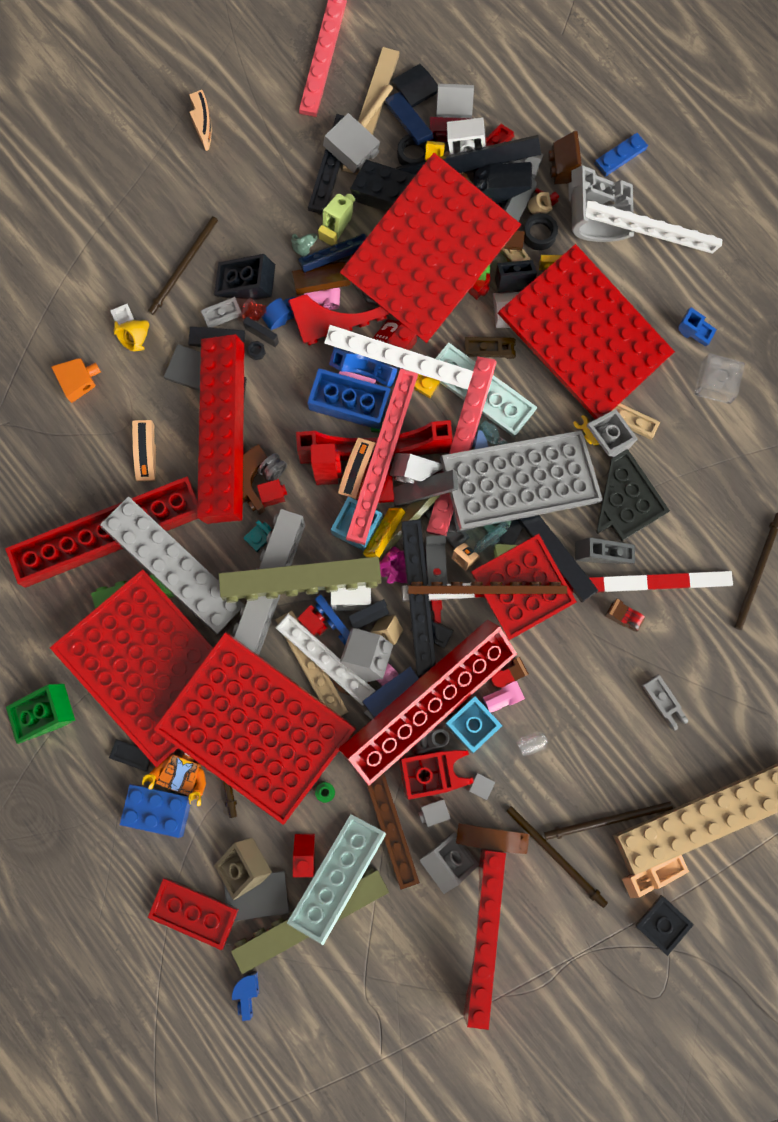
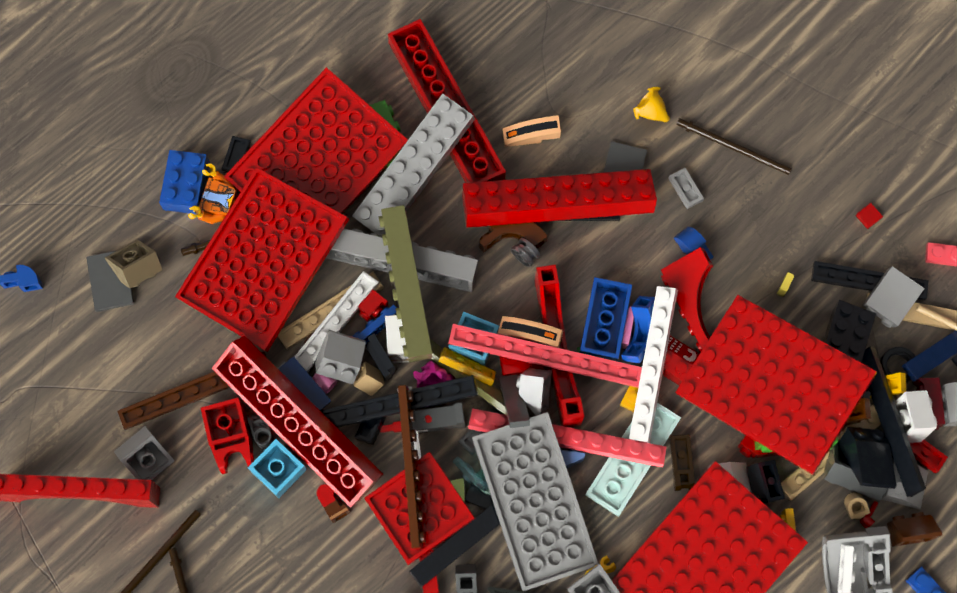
camera: 85 degrees right, 5 degrees down
(40, 712) = (271, 72): green slope -> none
(75, 378) = (599, 60): orange torso -> none
(122, 314) = (670, 95): white plate -> none
(193, 913) = (92, 224): red plate -> none
(199, 333) = (660, 178): black tile -> none
(201, 117) = (900, 146): light nougat slope -> none
(245, 278) = (726, 207): black slope -> none
(253, 310) = (692, 216): clear red plate -> none
(256, 350) = (649, 226): black tile -> none
(258, 535) = (456, 245): teal bracket -> none
(261, 331) = (669, 228): black tile -> none
(267, 156) = (869, 216): none -> red tile
(272, 493) = (500, 255): red brick -> none
(283, 936) = (89, 331): olive brick -> none
(303, 244) = (773, 260): sand green piece -> none
(304, 855) = (146, 318): red slope -> none
(320, 278) = (734, 277): reddish brown tile -> none
(320, 797) = (207, 339): green plate -> none
(326, 464) = (527, 297): red brick -> none
(327, 298) = (716, 290): bright pink piece -> none
(331, 253) = (766, 289): dark blue tile -> none
(336, 879) = (125, 348): light aqua plate -> none
(338, 213) = (810, 291): yellowish green torso -> none
(434, 813) = (190, 438): light grey brick -> none
(465, 556) = (447, 447): light nougat slope -> none
(482, 786) = (218, 484): light grey tile -> none
(491, 433) = (586, 468): clear light blue plate -> none
(492, 839) = (164, 496): reddish brown arch -> none
(506, 696) = (309, 501): bright pink piece -> none
(516, 241) = (808, 481): reddish brown tile -> none
(532, 743) = (262, 530): clear brick -> none
(543, 219) = (834, 497): black tyre -> none

